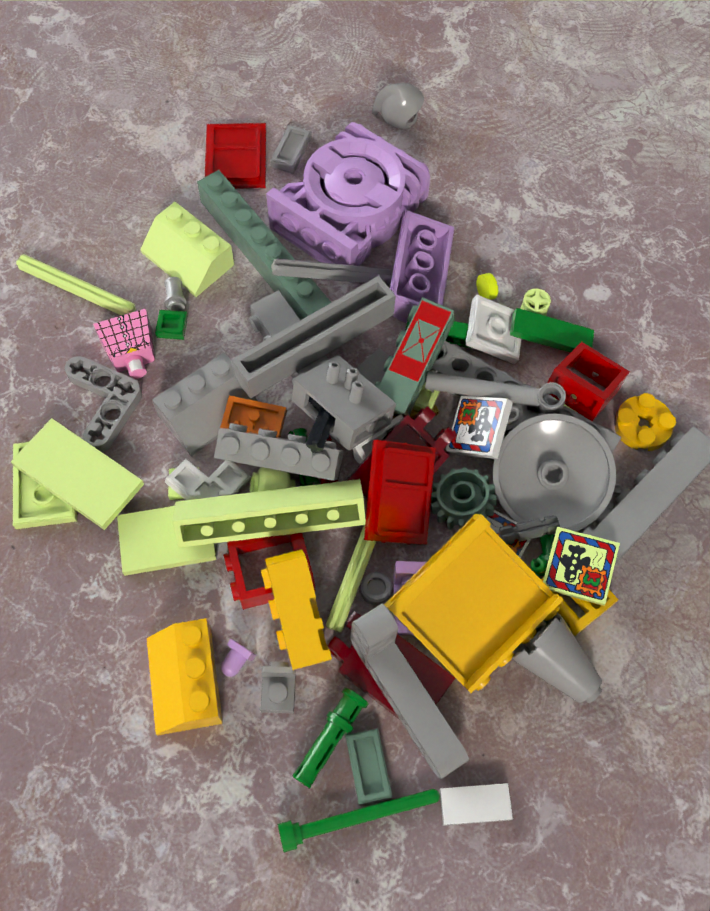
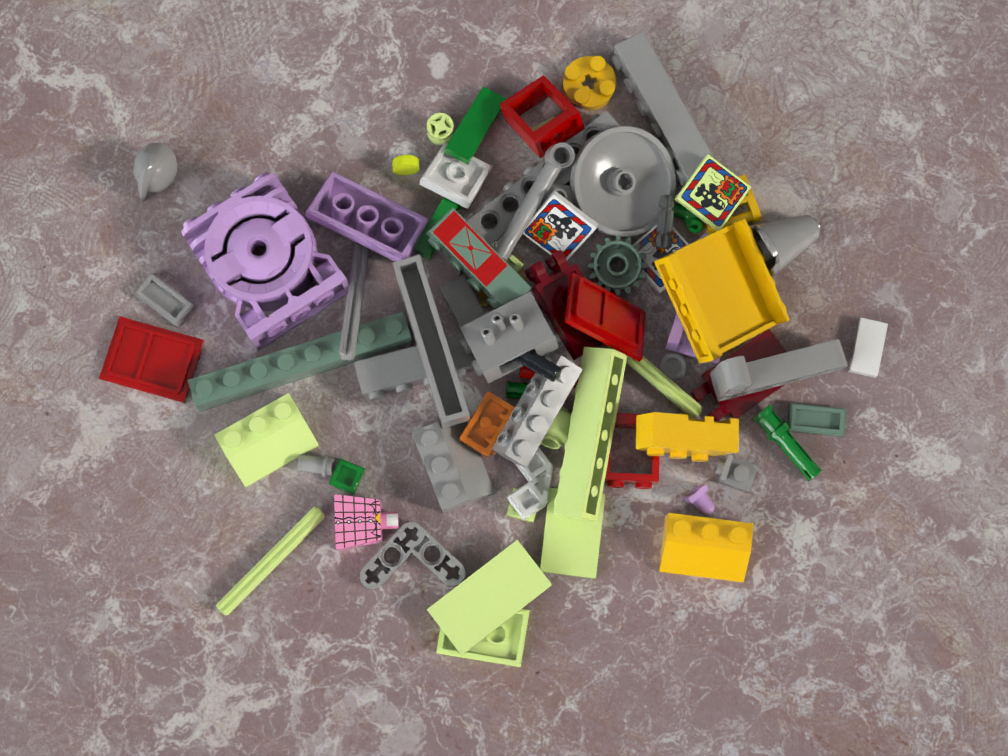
camera: 75 degrees left, 15 degrees up
(294, 834) = (852, 492): green piece -> none

